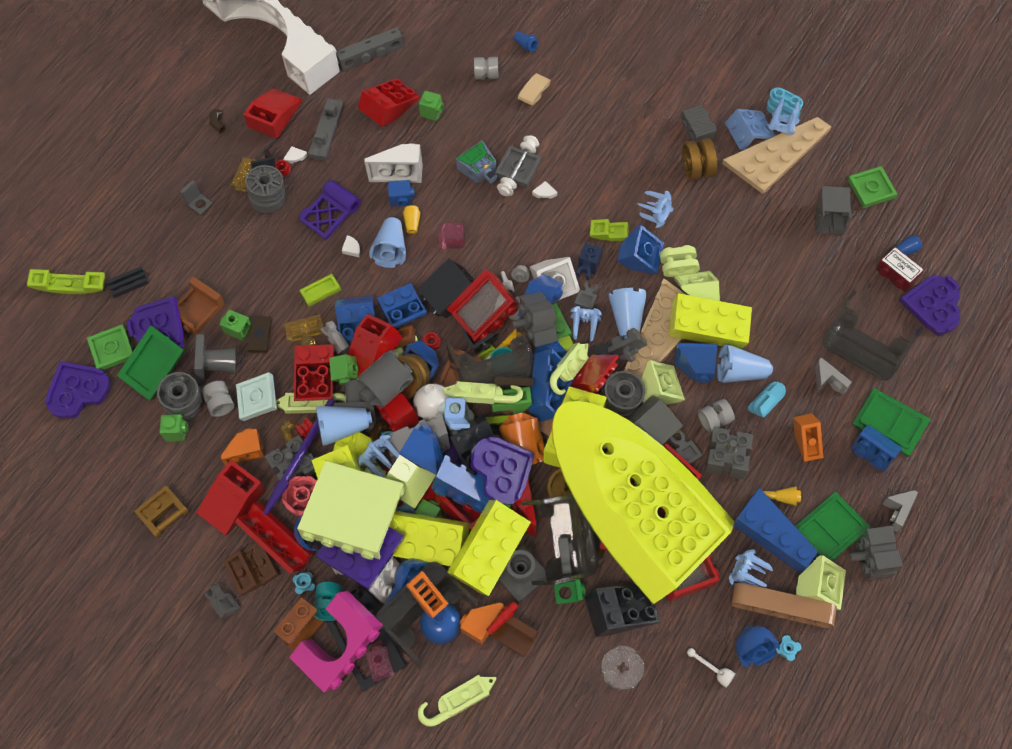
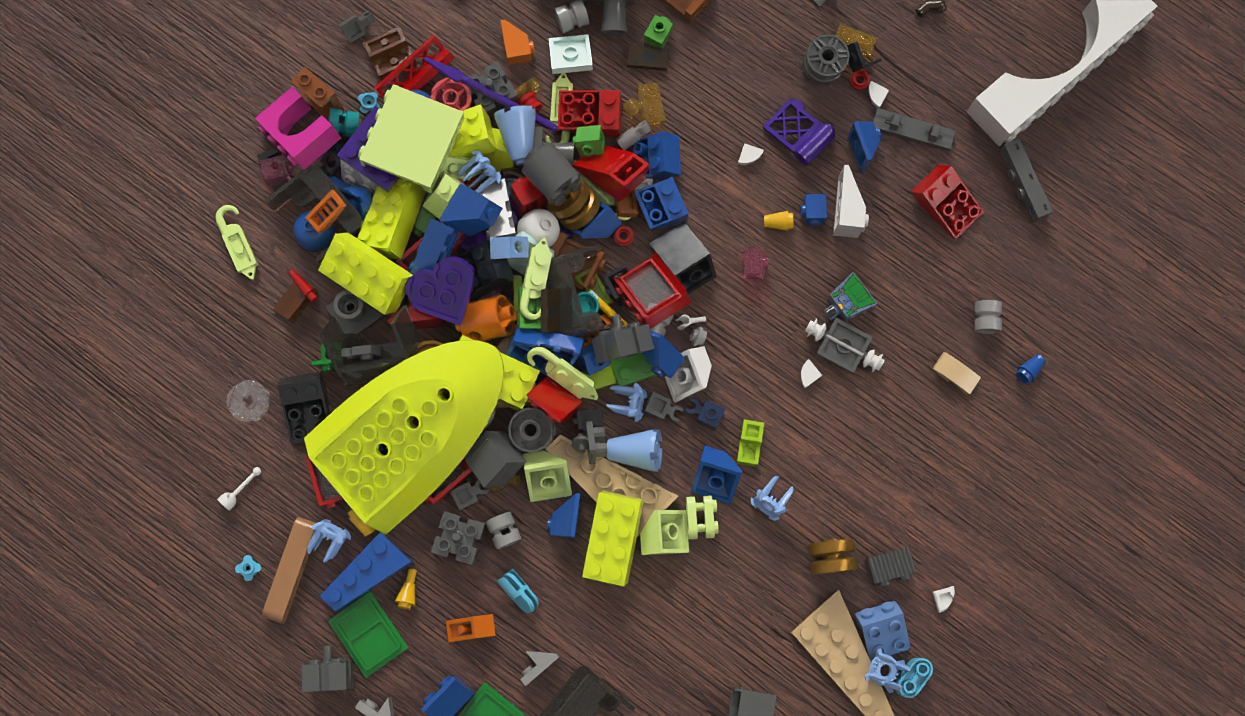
camera: 90 degrees right, 15 degrees up
(230, 497) = (462, 31): red slope -> none
(271, 112) = (939, 68): red slope -> none
(320, 290) = (697, 121): lime tile -> none
(343, 158) = (864, 142): none -> blue slope
(389, 244) = (748, 194): light blue cone -> none
(430, 105) = (935, 248): bright green brick -> none
(478, 620) = (307, 267): orange slope -> none
(717, 92) = (943, 598): none -> white tile
(726, 545) = (359, 524): none -> yellow cone
(741, 365) = (558, 568): light blue cone -> none
(756, 645) = (252, 533): blue cylinder -> none
(822, 581) = (305, 613): yellowish green slope -> none

